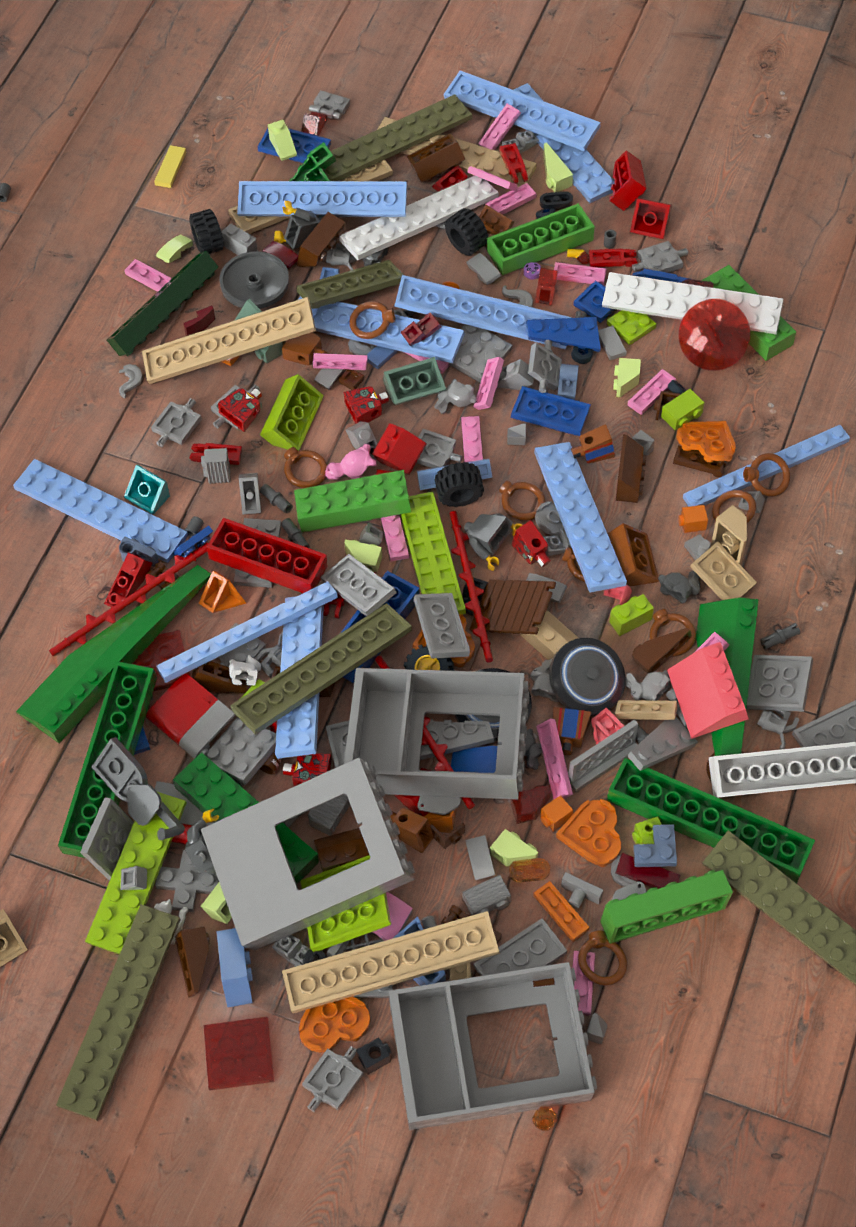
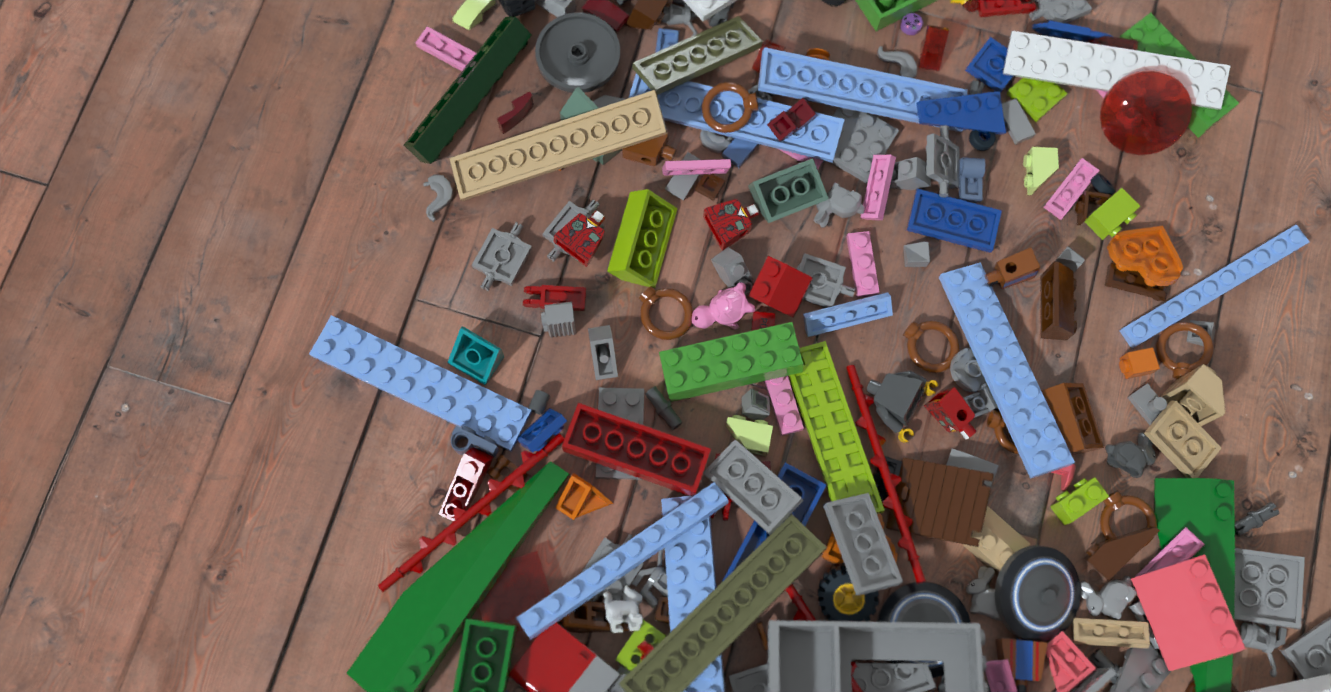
camera: 10 degrees left, 15 degrees up
(276, 498) = (635, 358): dark grey pin -> none
(459, 484) = (859, 335): black tyre -> none
(484, 268) = (854, 24): light grey slope -> none
(580, 273) = (969, 25): bright pink tile -> none
(751, 474) = (1205, 301): dark orange piece -> none

